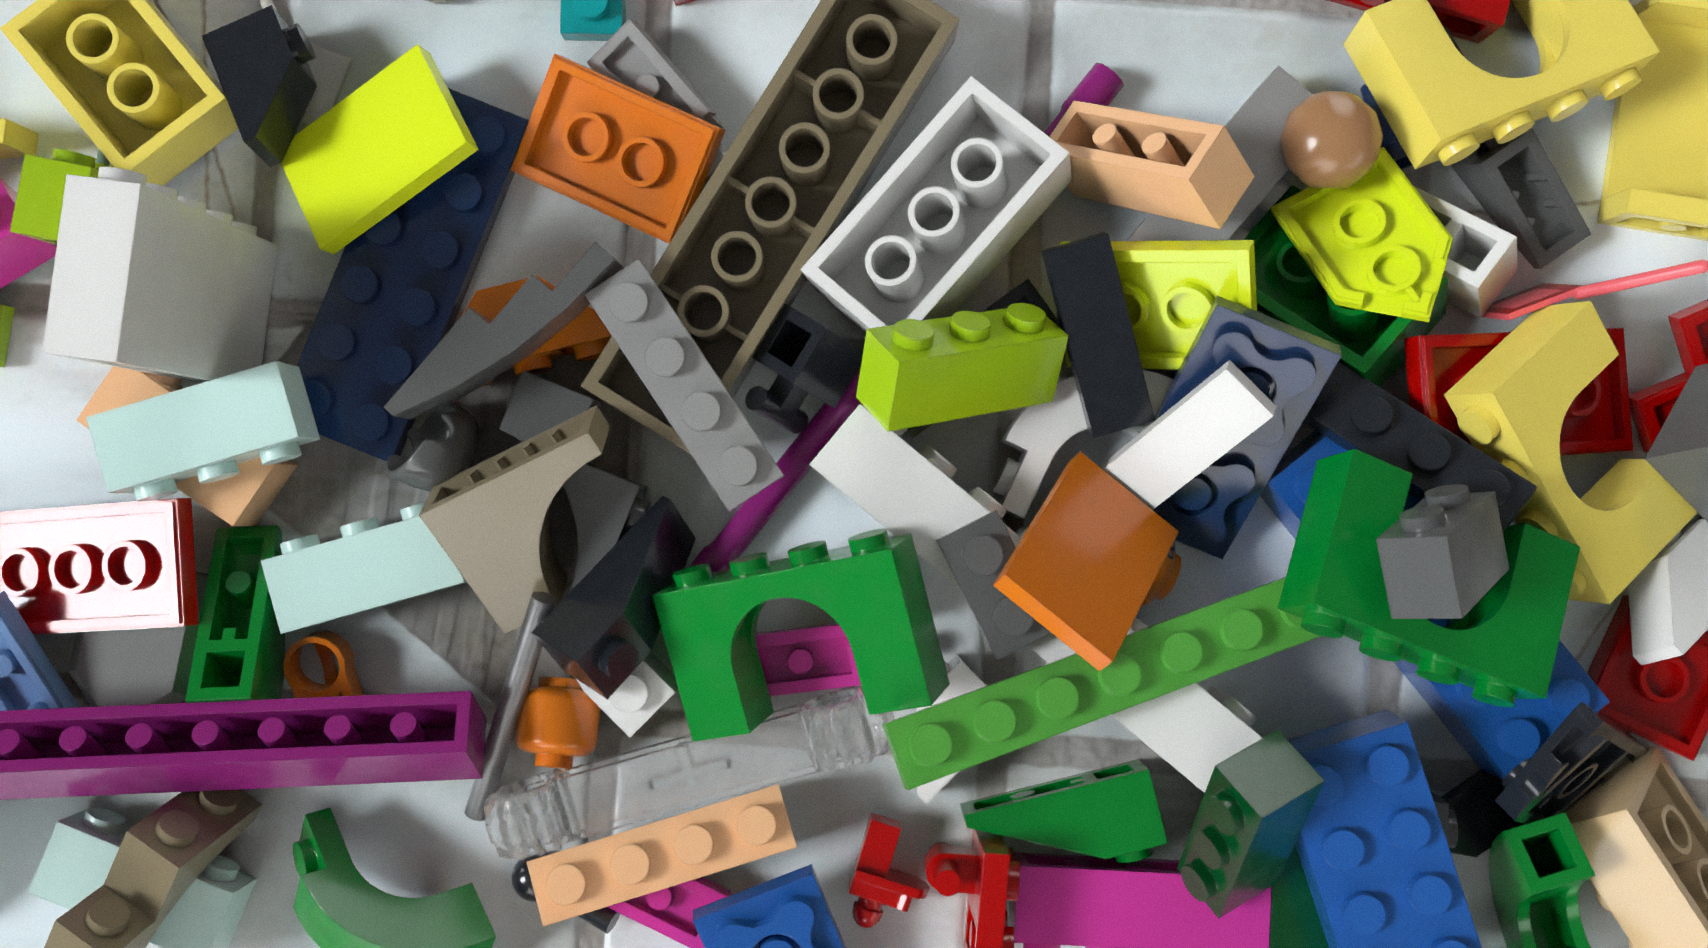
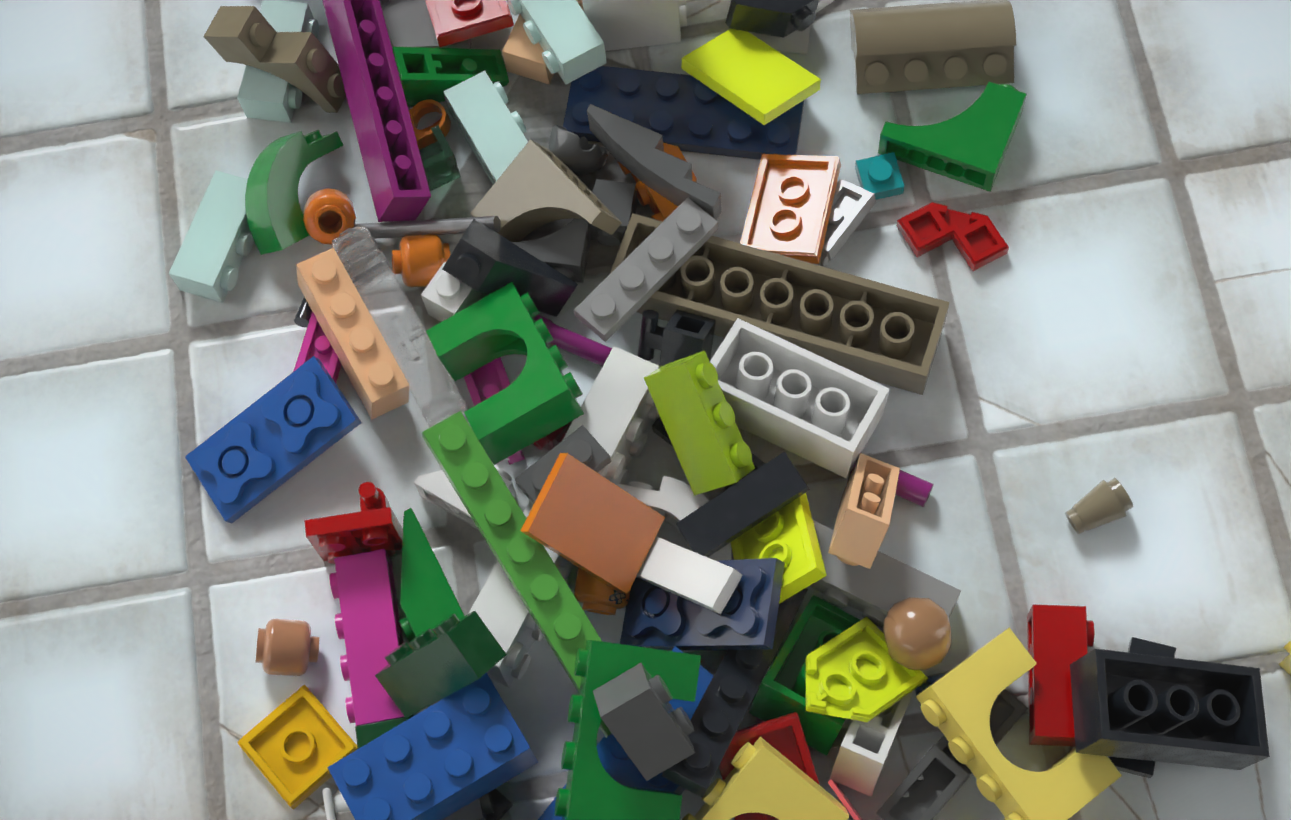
camera: 85 degrees right, 20 degrees down
(394, 667) = (439, 161): none -> clear green panel
(448, 852) = (328, 215): none -> orange head
(875, 880) = (361, 469): red piece -> none

